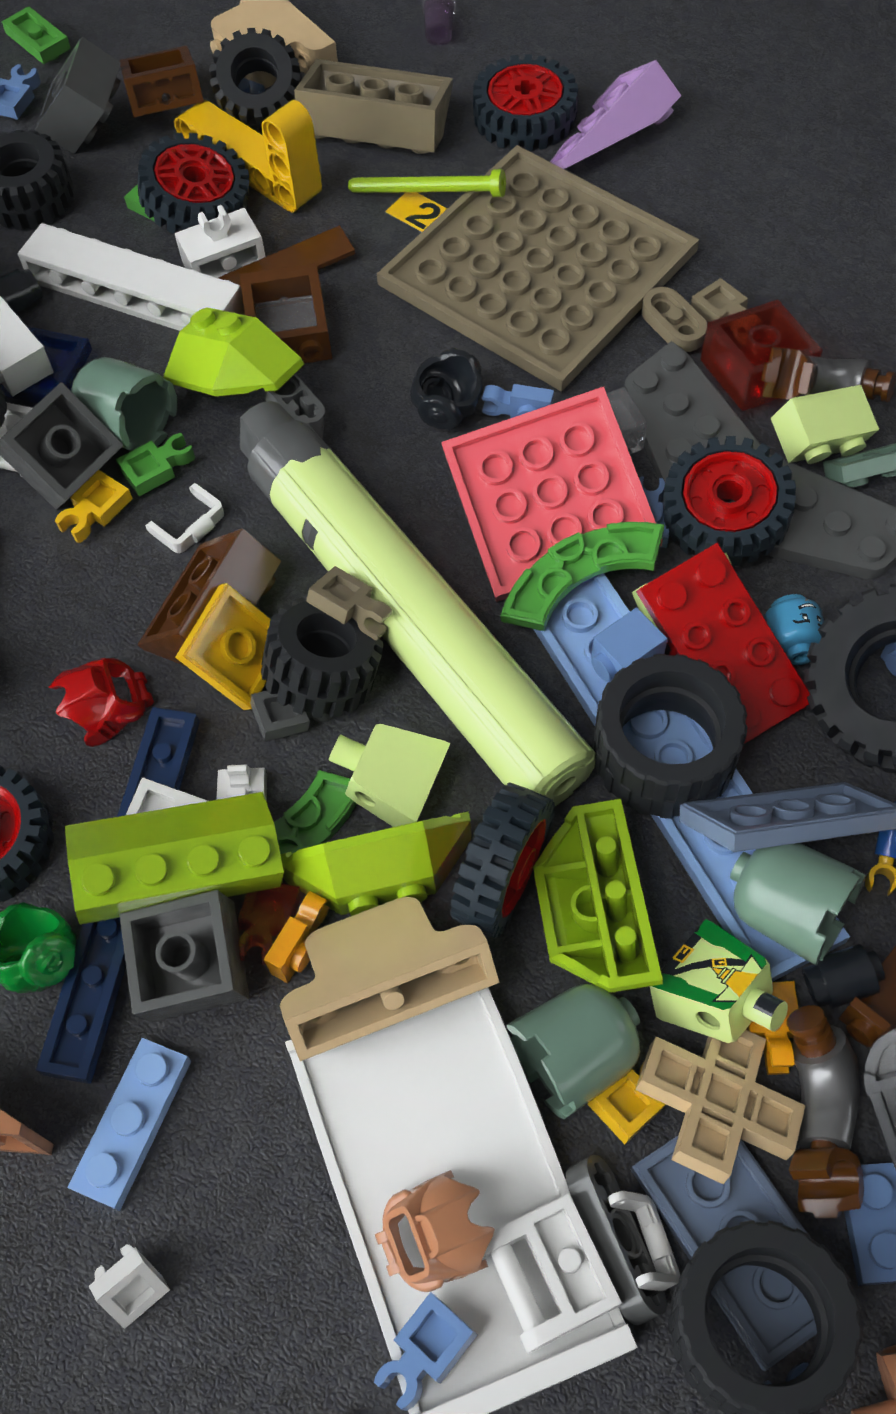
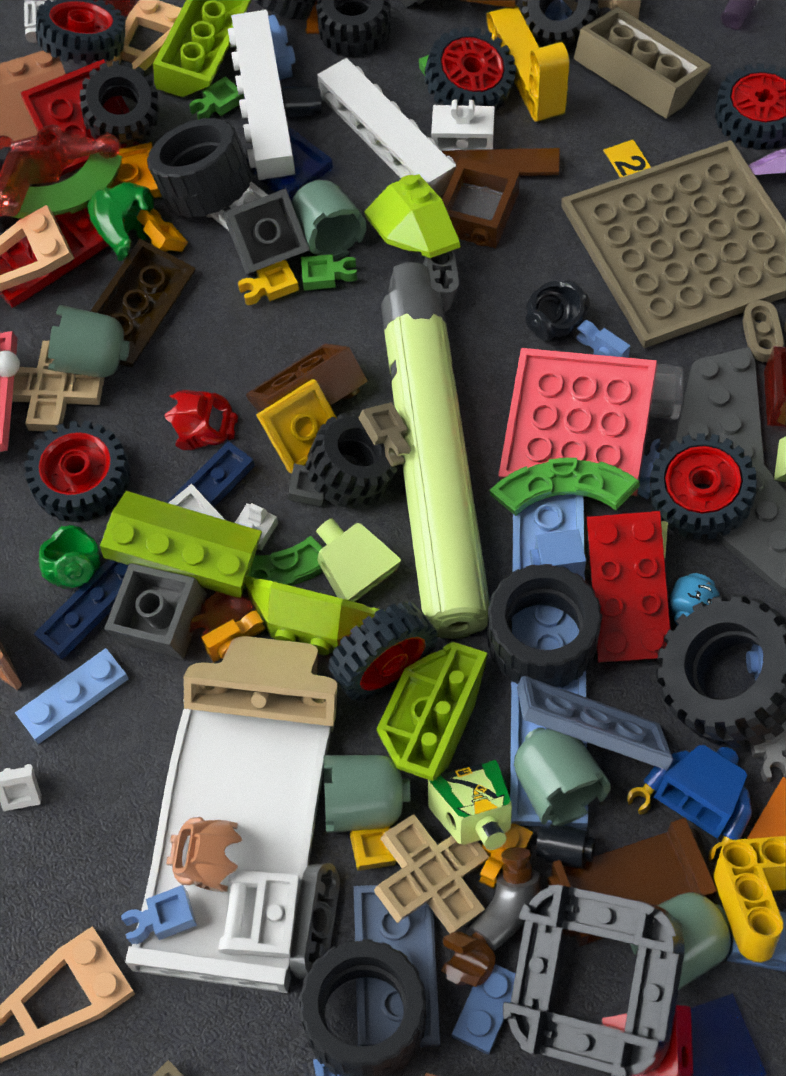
camera: 30 degrees right, 0 degrees up
(198, 529) = (331, 331): white piece -> none
(494, 183) = (690, 165): lime bar -> none
(667, 1271) = (343, 927): white piece -> none

